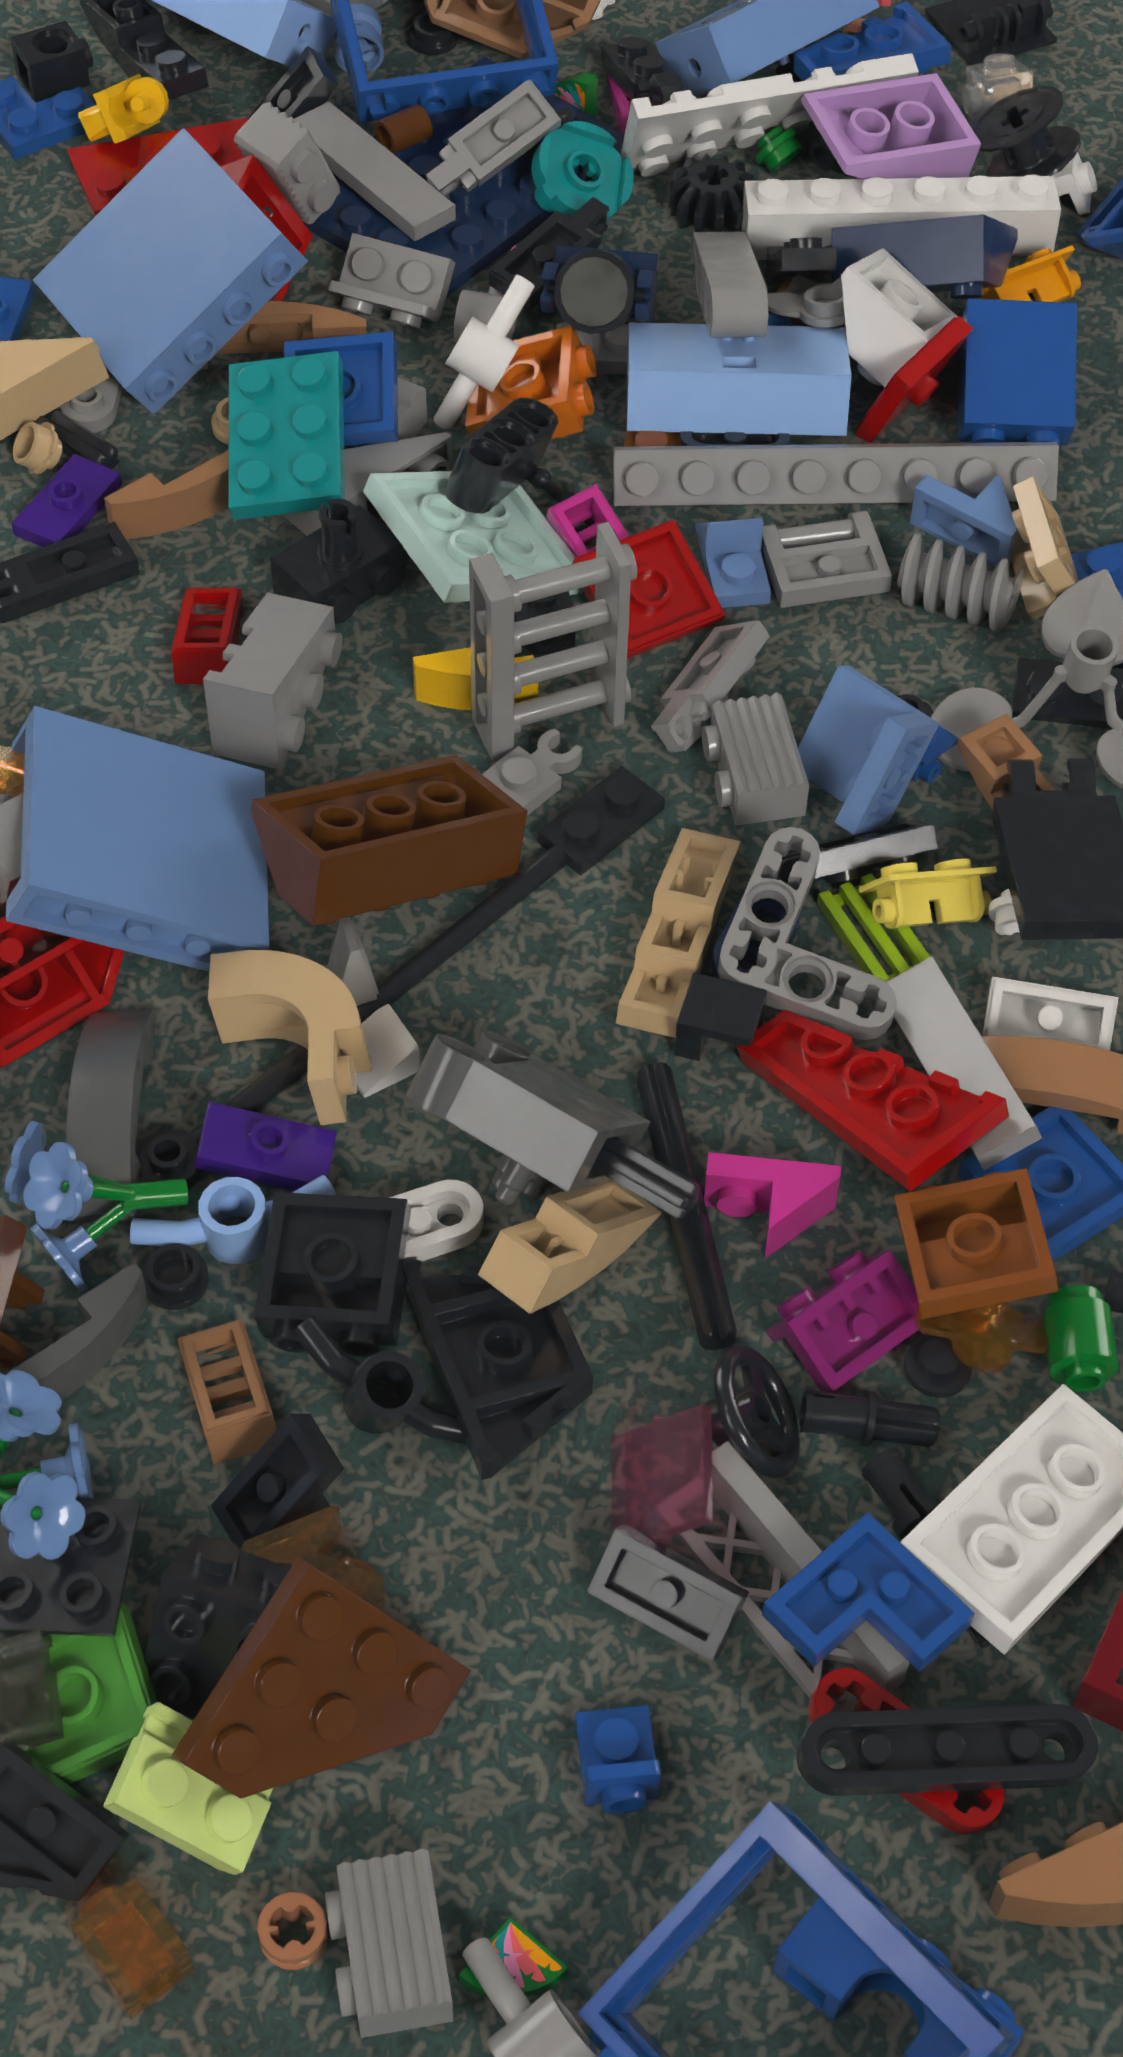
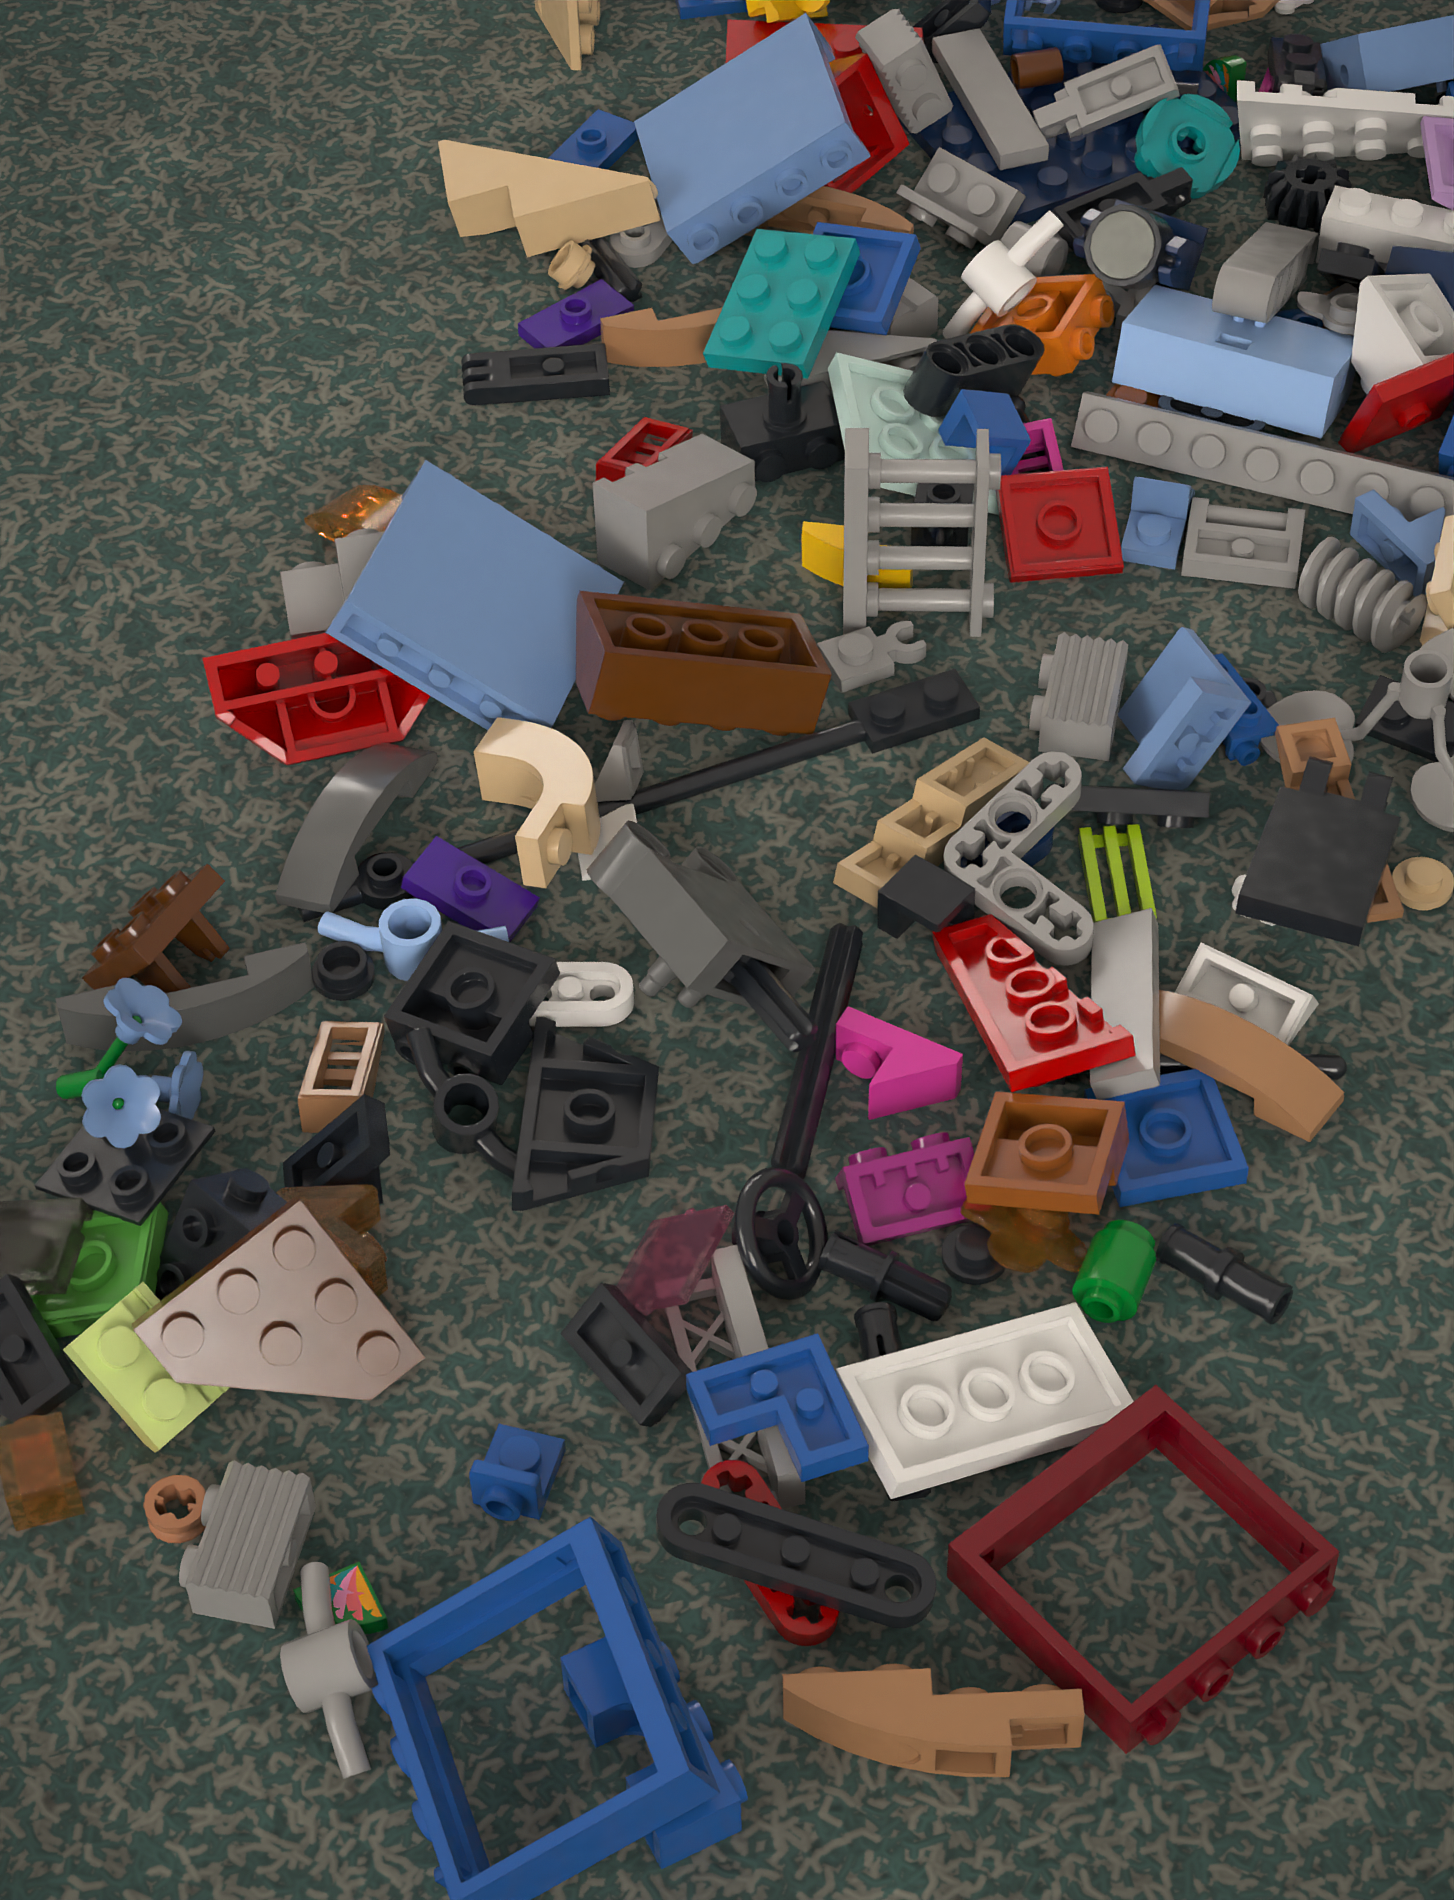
camera: 25 degrees right, 5 degrees down
(58, 1185) = (260, 849): medium blue plant -> none
(548, 507) = (986, 411): none -> blue panel
(566, 1243) = (684, 1044): tan slope -> none
(705, 679) = (1099, 602): light grey hinge -> none
(778, 148) = (1397, 167): green plate -> none
(951, 886) = (1159, 846): light yellow hinge -> none

